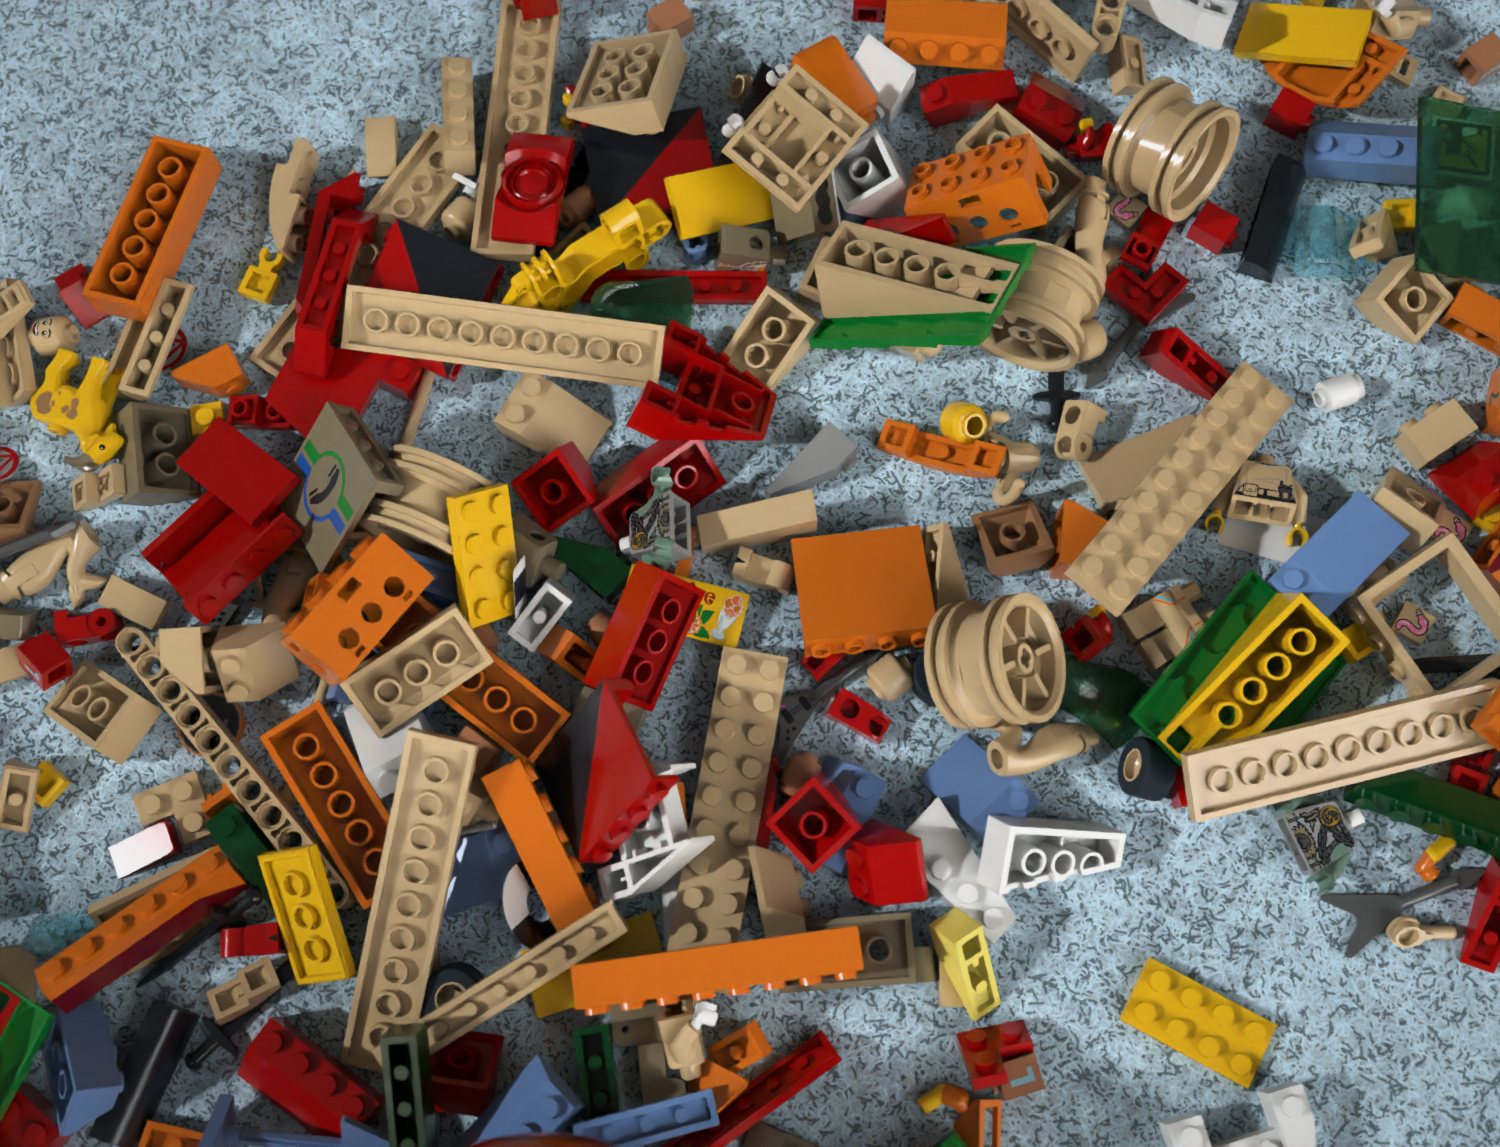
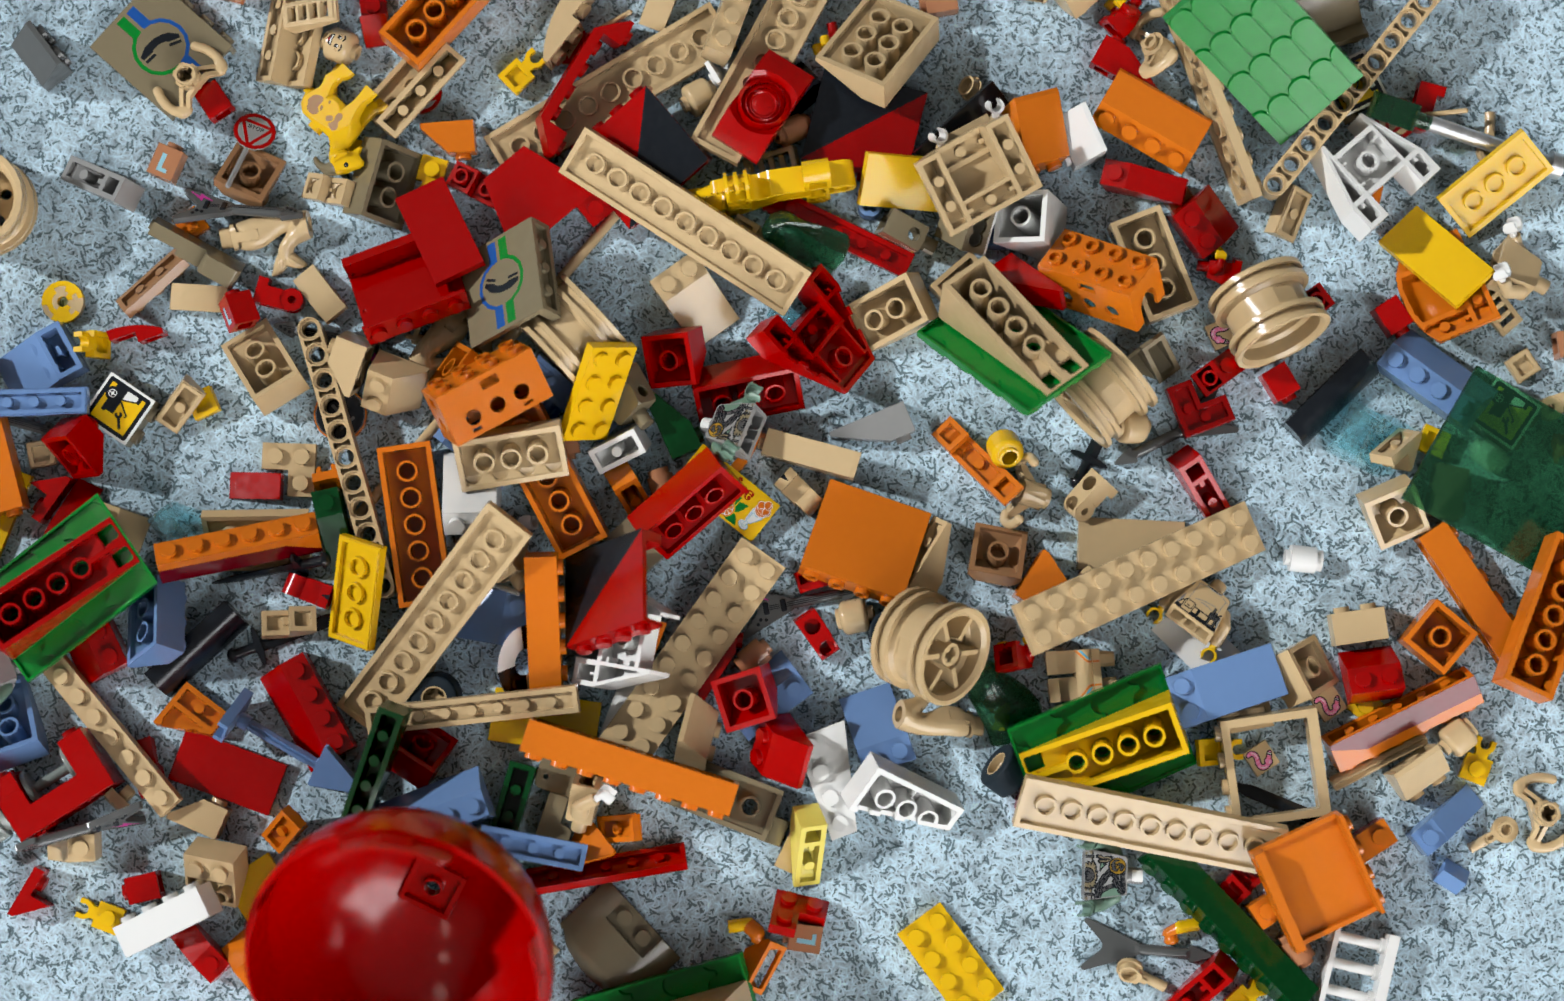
camera: 20 degrees right, 10 degrees up
(326, 290) = (571, 116): red slope -> none
(488, 752) = (532, 523): nougat brick -> none
(519, 579) = (612, 424): sticker -> none
(1091, 227) = (1179, 341): tan piece -> none

